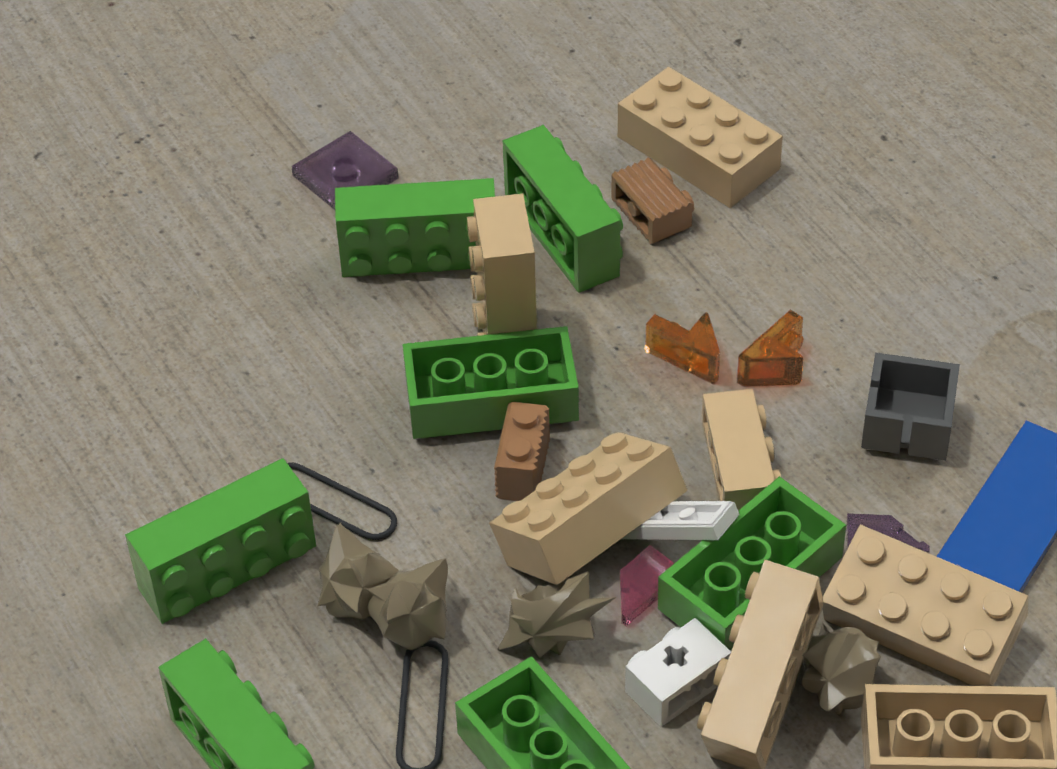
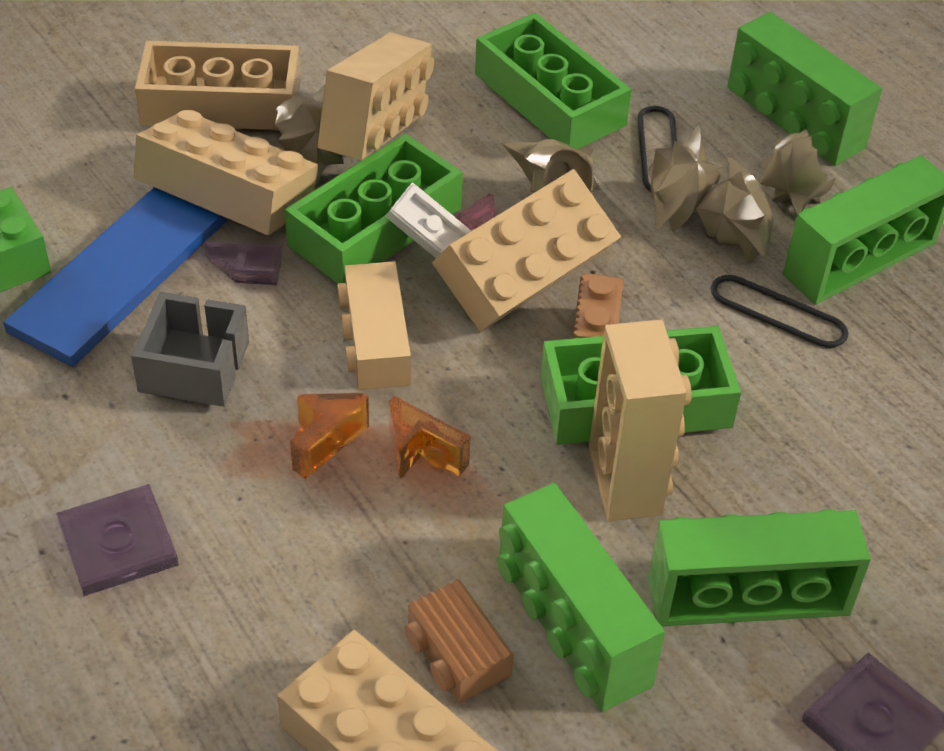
camera: 175 degrees right, 0 degrees up
(273, 637) = (795, 171): none -> dark tan hair
(675, 671) = (456, 138): white brick -> none
(935, 280) = (117, 539): none -> tile

